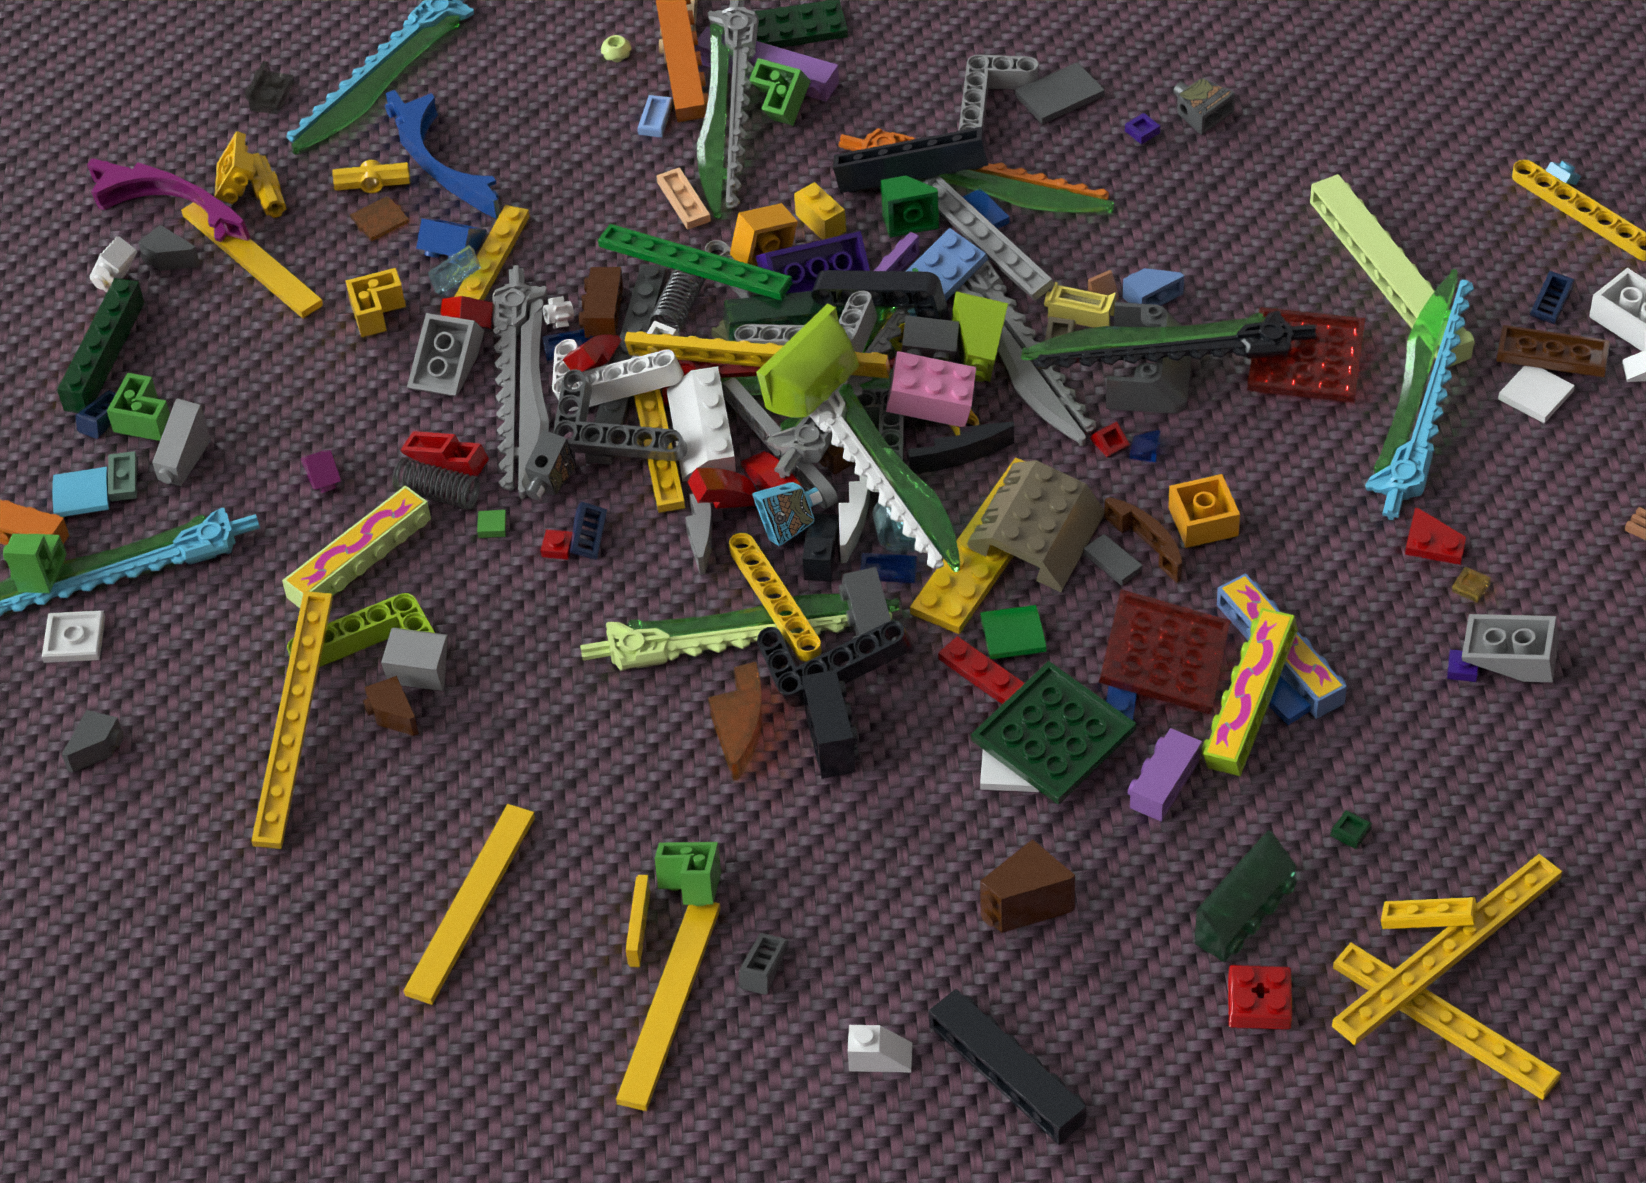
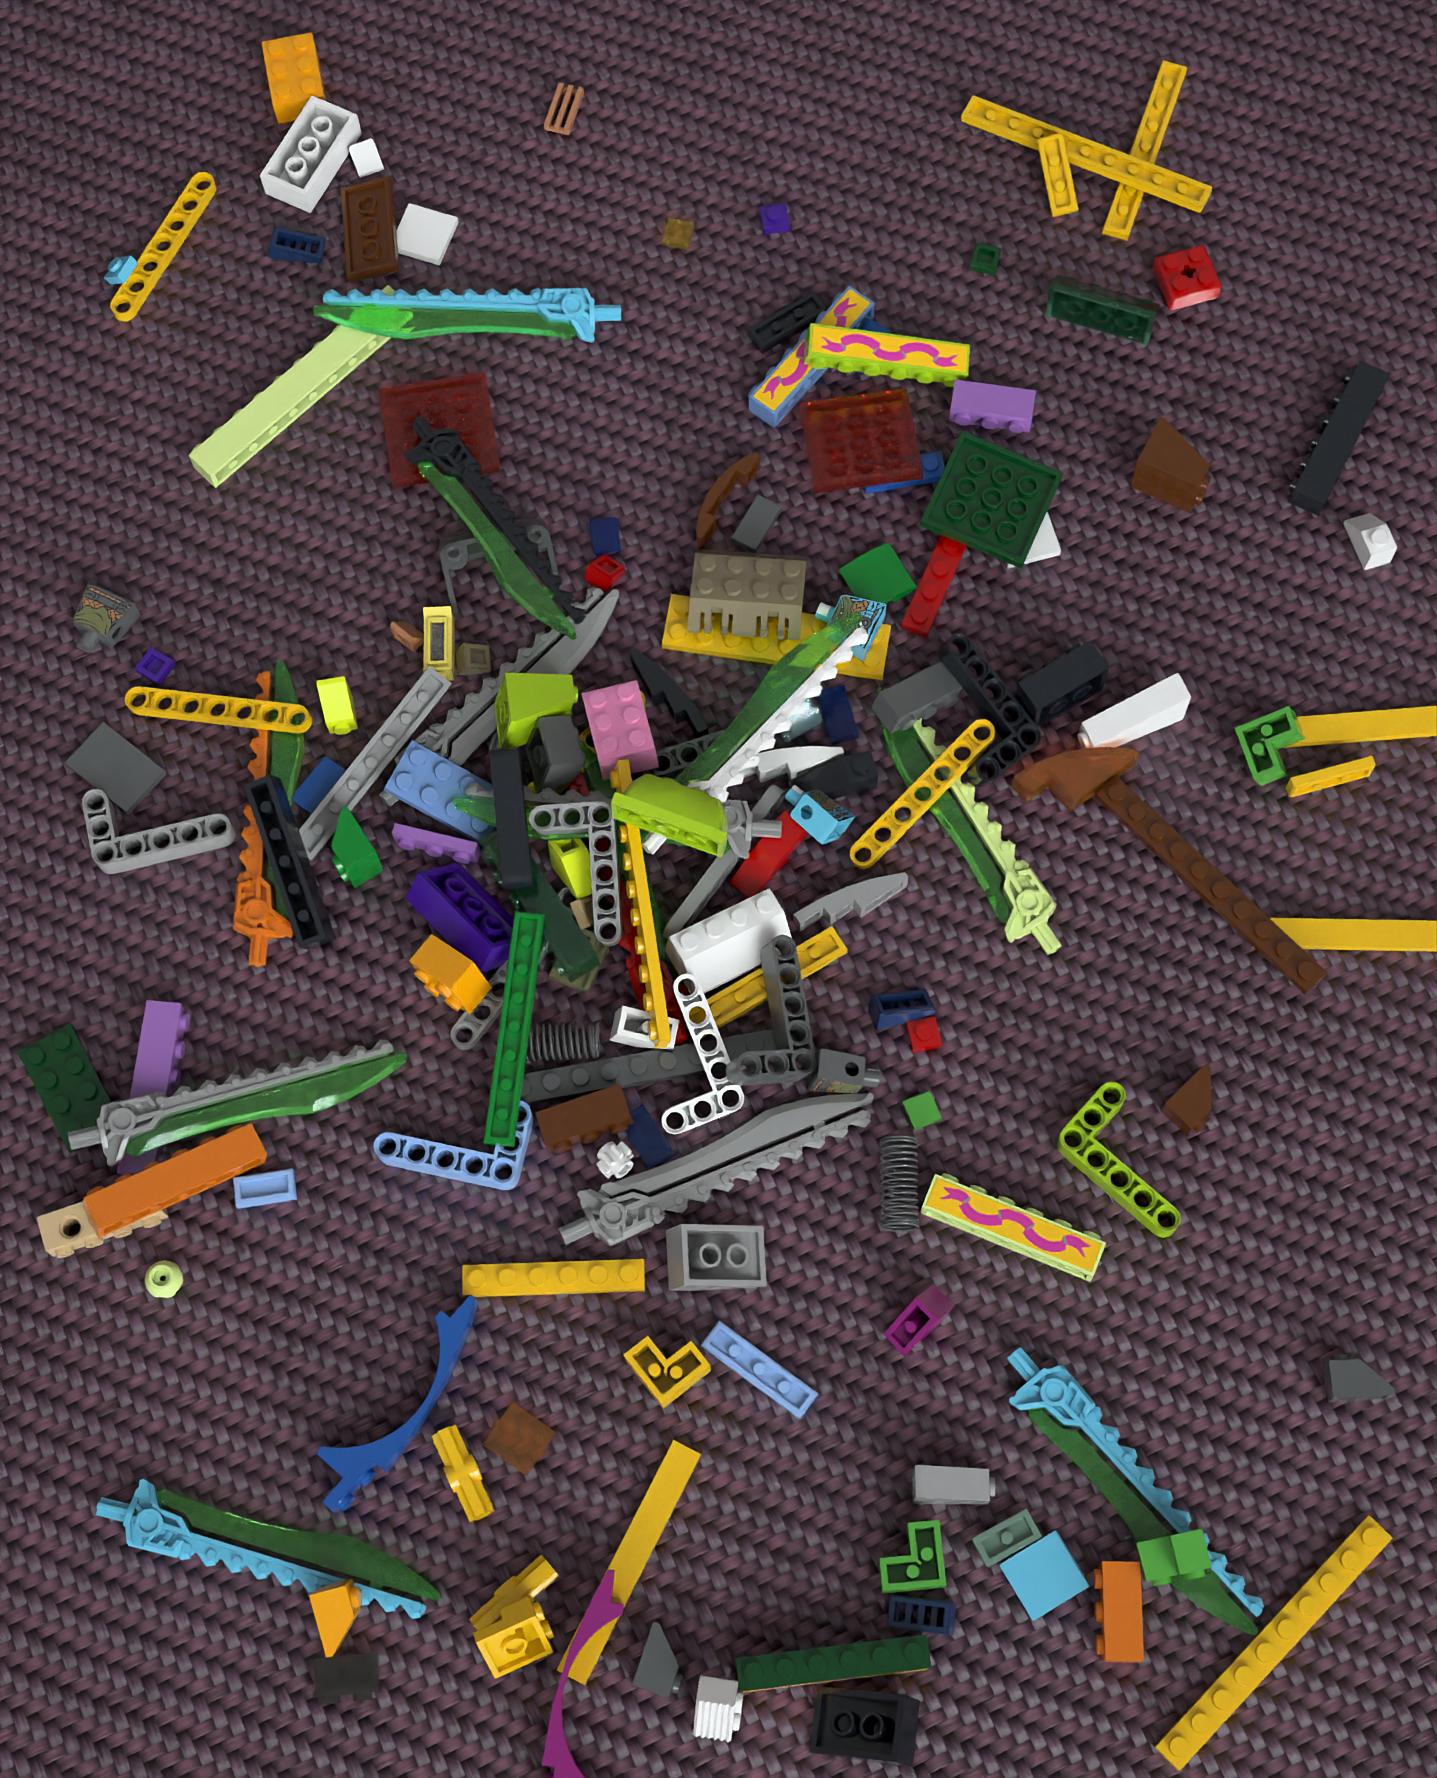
camera: 110 degrees left, 20 degrees up
(41, 356) = (865, 1726): none -> black slope
(73, 636) = (1230, 1480): white tile -> none
(292, 720) = (1254, 1181): yellow plate -> none
(314, 83) = (335, 1611): none -> light orange slope
(344, 366) = (759, 1370): none -> light blue tile
(416, 658) = (1138, 1092): light grey slope -> none
(446, 452) = (849, 1199): red slope -> none
(447, 237) = (535, 1331): blue slope -> none
(454, 270) = (588, 1301): clear light blue plate -> none
(469, 309) = (650, 1261): red slope -> none
(581, 788) = (1211, 885): none -> reddish brown plate
(592, 353) = (677, 1084): red slope -> none
(618, 210) = (462, 1157): none -> light blue beam
(683, 198) = (395, 1099): light nougat plate -> none
(722, 488) = (818, 880): red slope -> none
(761, 980) = (1319, 653): dark grey slope -> none
(772, 781) = (1137, 715): none -> white slope
(784, 89) = (204, 1039): bright green brick -> none
(820, 212) = (379, 942): yellow brick -> none
(964, 589) = (871, 618): none -> torso
(1047, 225) = (337, 705): none -> neon yellow slope
(1079, 163) = (228, 717): none -> yellow beam
(1153, 286) = (396, 589): medium blue slope -> none
(1204, 510) = (680, 454): light orange brick -> none
(1333, 642) = (786, 322): none -> black tile
(1434, 539) = (635, 274): red wing -> none
(1513, 645) = (749, 175): light grey slope -> none

